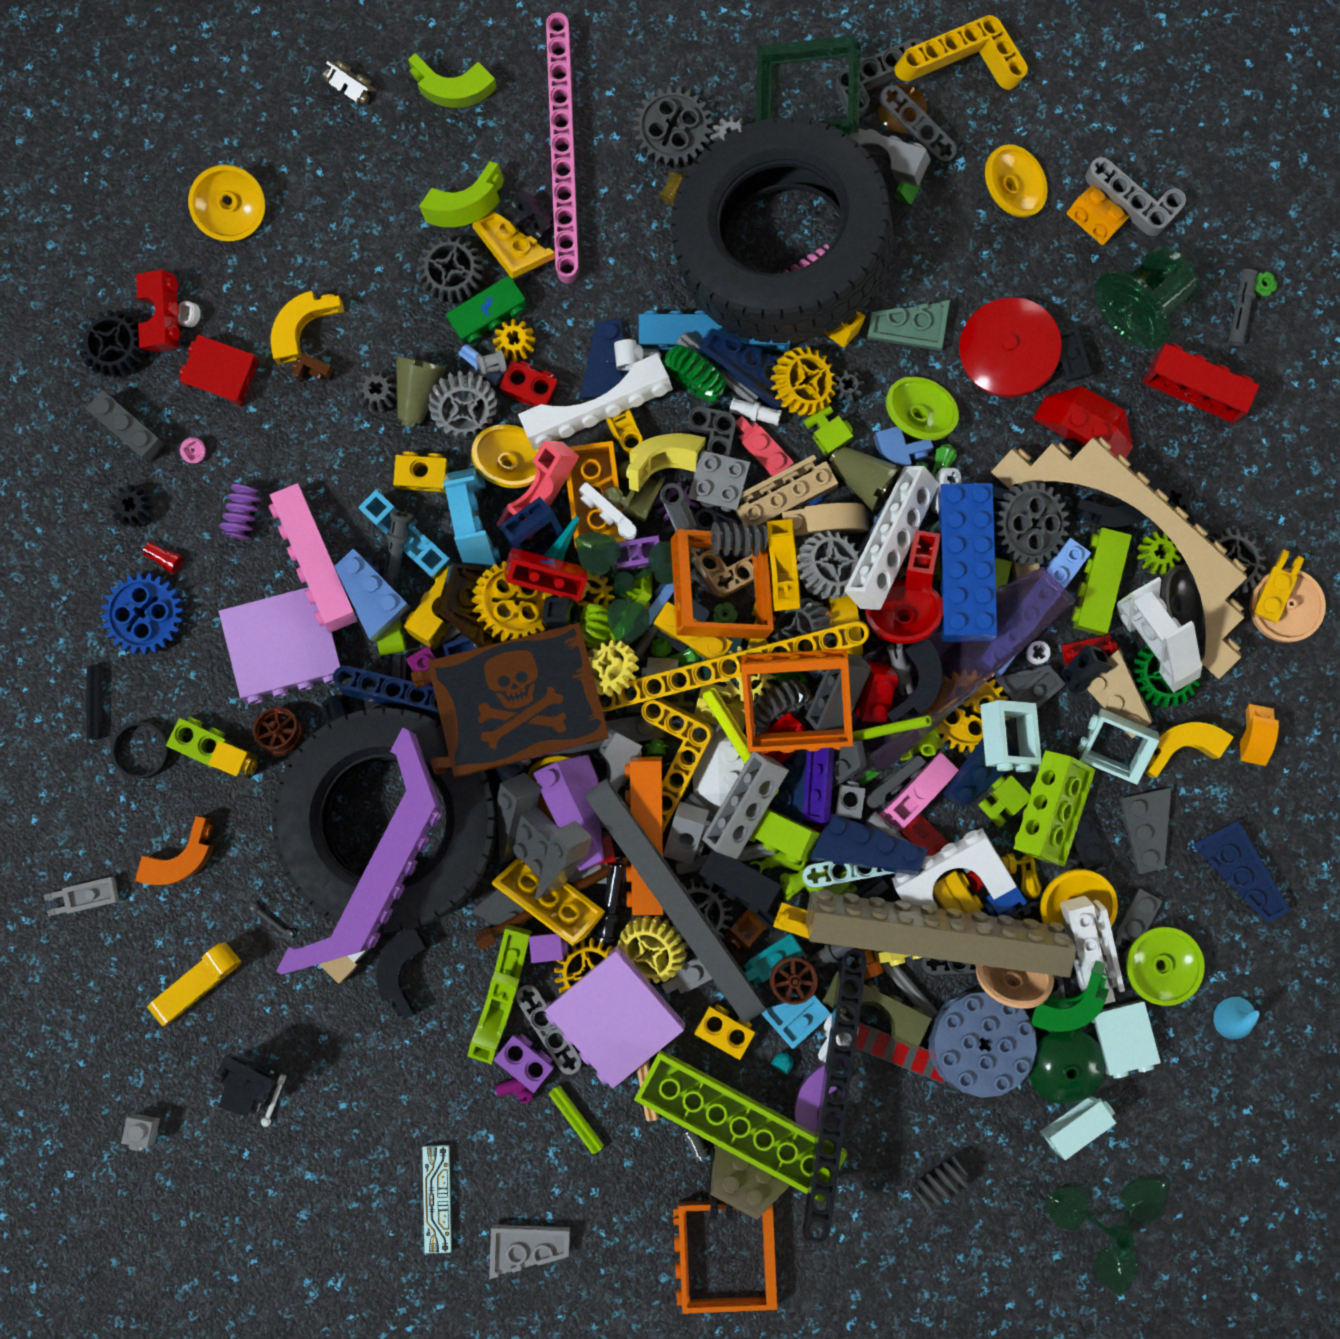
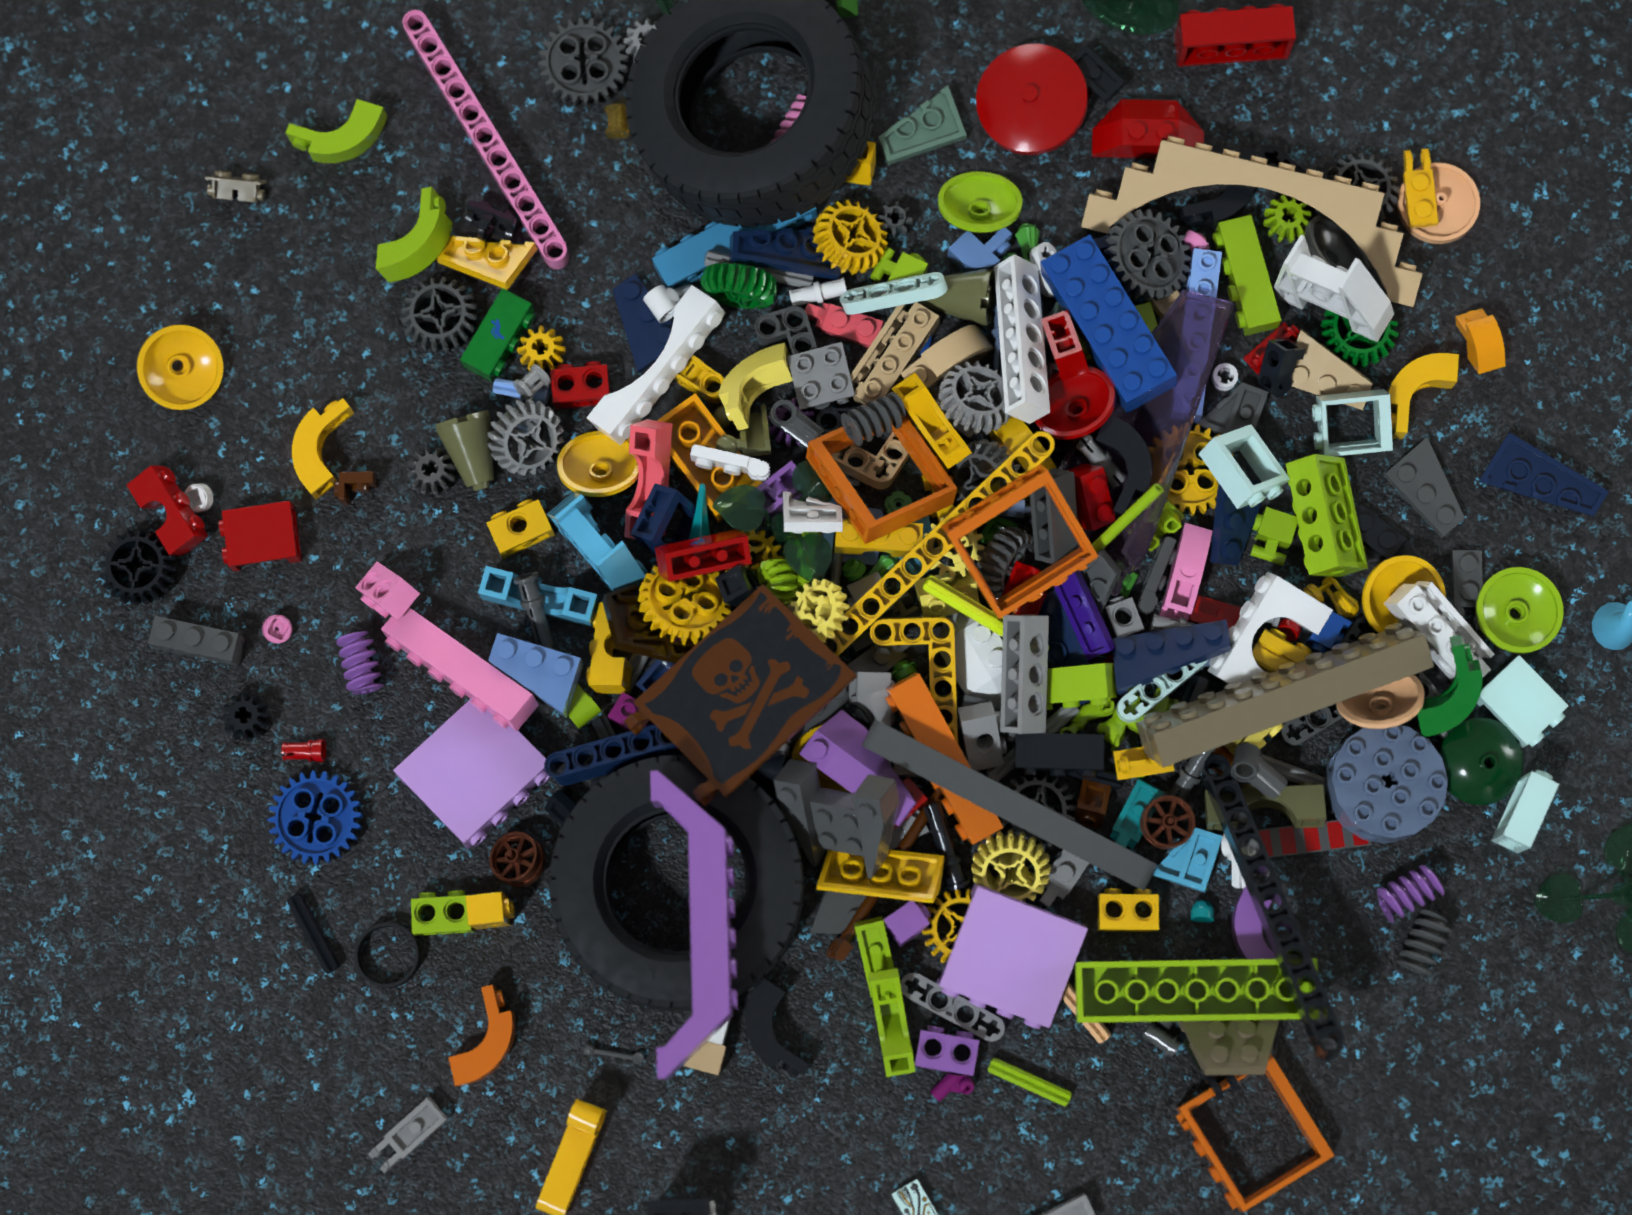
camera: 25 degrees left, 5 degrees down
(289, 467) = (386, 592): none -> bright pink brick
(646, 588) = (810, 515): none -> white wing
(811, 445) = (893, 293): none -> light aqua beam
(880, 976) = (1251, 768): none -> dark grey piece
(951, 1137) = (1408, 891): none -> medium lavender piece
(1076, 532) = (1195, 240): none -> bright pink tile

